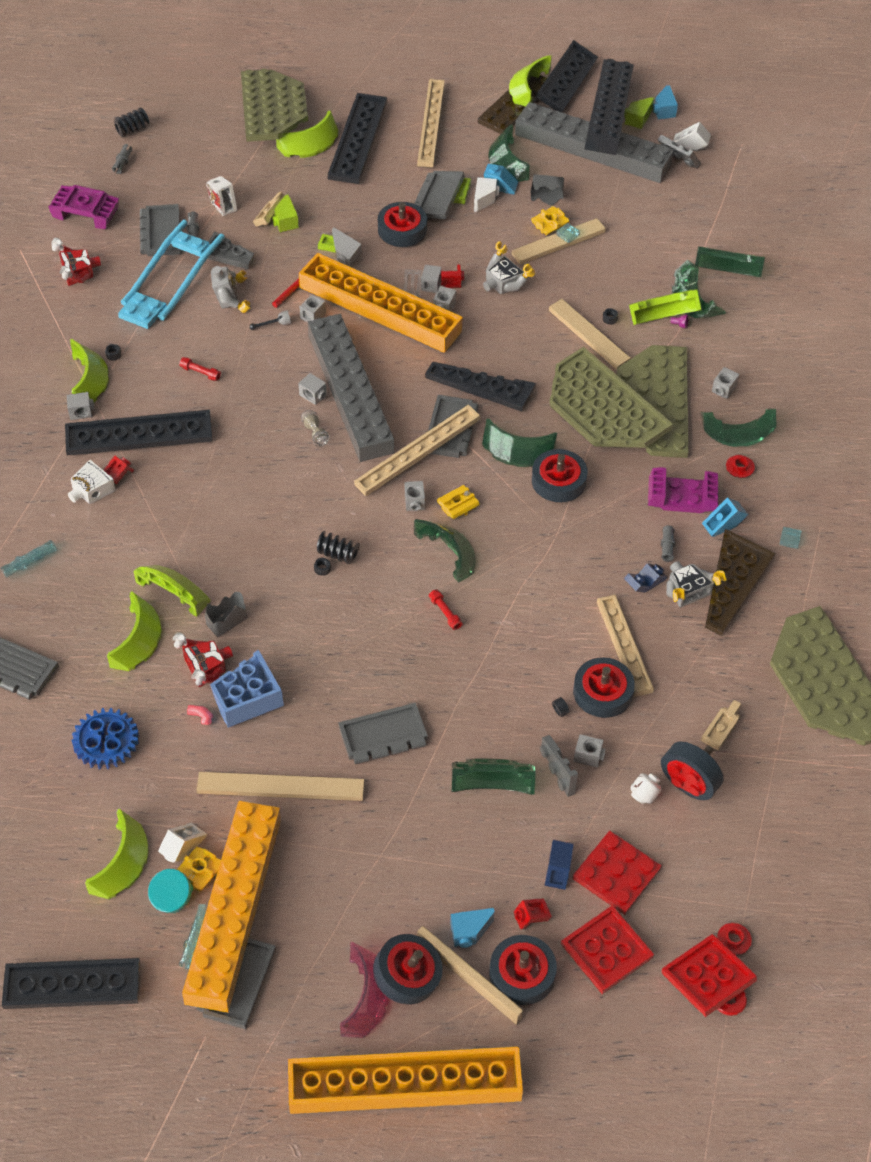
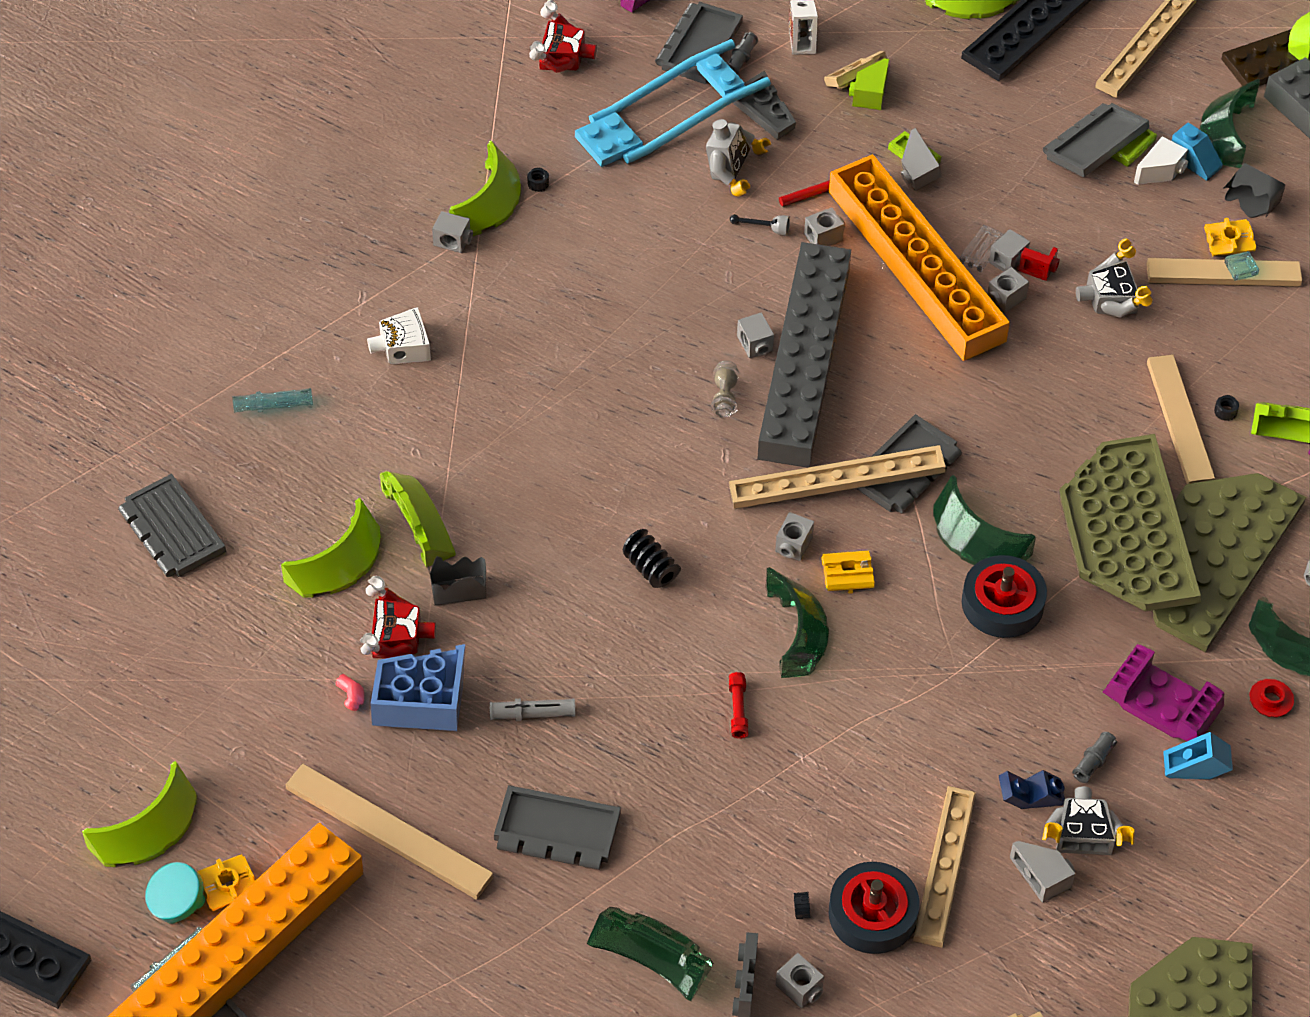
camera: 30 degrees right, 0 degrees up
(86, 737) = (220, 667): blue gear -> none
(117, 468) = (447, 333): red bracket -> none
(138, 432) = (503, 298): black plate -> none
(181, 842) = (226, 838): white slope -> none
(213, 374) = (620, 234): red bar -> none
(322, 561) = (619, 567): black axle -> none
(322, 670) = (532, 709): none -> light grey pin
(402, 224) = (1017, 160): wheel -> none
(496, 389) = (998, 440): black wing -> none
(681, 619) = (1043, 869): none -> light grey slope
(743, 567) = (1166, 842): dark brown wing -> none
(790, 537) = (1275, 829): clear light blue tile -> none

